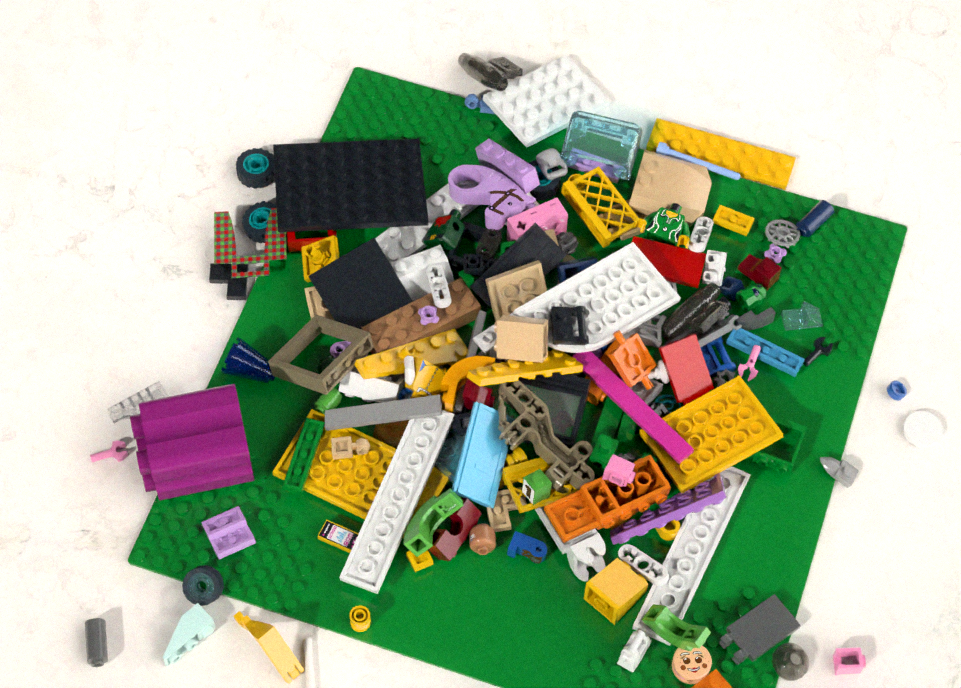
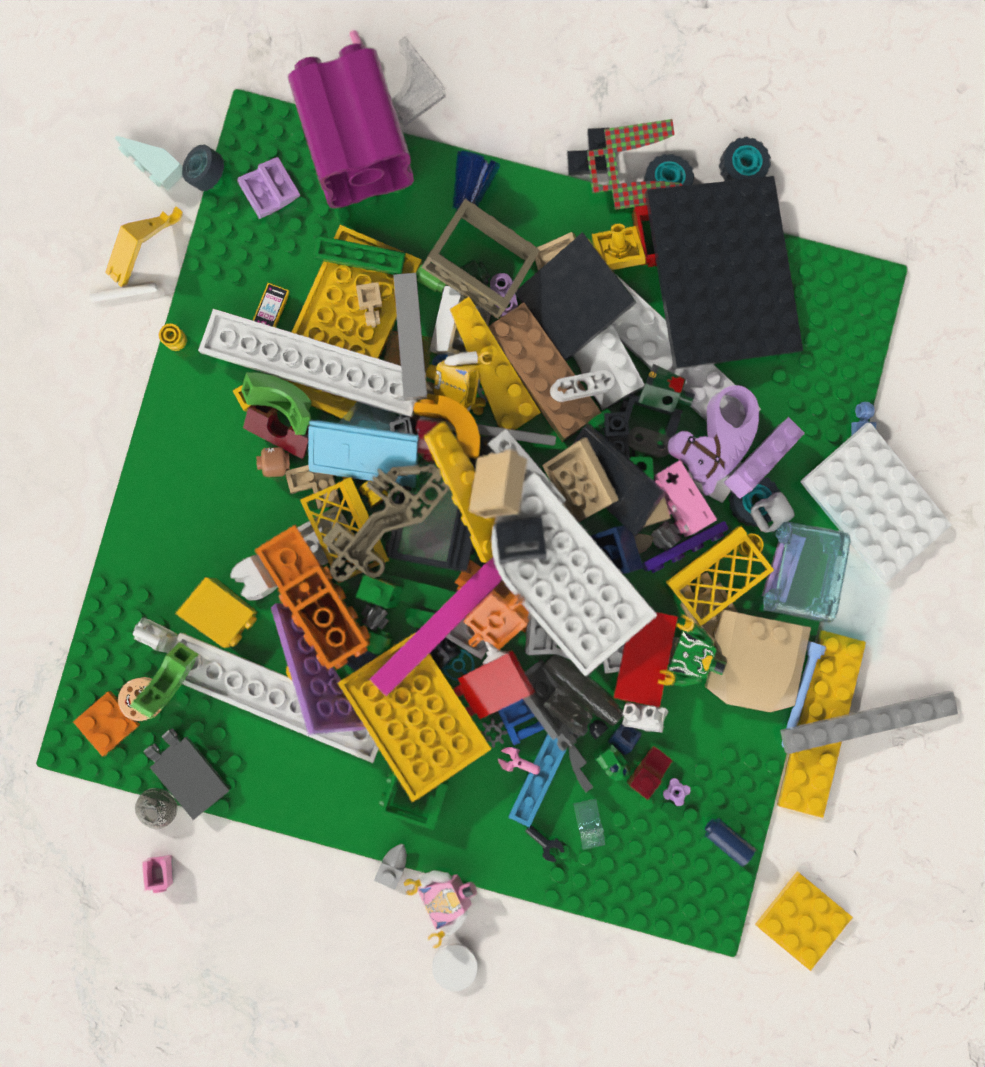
camera: 85 degrees right, 25 degrees up
(96, 642) = (137, 68): dark grey brick -> none
(428, 310) = (541, 370): lavender plate -> none
(490, 73) = (910, 429): clear smoke plate -> none
(527, 547) = (268, 513): blue leg -> none
(536, 486) = (324, 515): bright green brick -> none
(574, 226) = (693, 543): none -> dark purple plate
(619, 471) = (334, 608): bright pink window -> none
(647, 573) = (235, 651): white beam -> none
(700, 234) = (699, 697): white beam -> none
(720, 120) = (868, 722): none -> light grey plate
(733, 220) = (719, 740): yellow plate -> none
(784, 235) = (705, 801): light grey wheel -> none
(867, 427) = (444, 900): none -> torso
(877, 178) = (803, 921): none -> yellow plate
(896, 390) = (502, 937): tile -> none

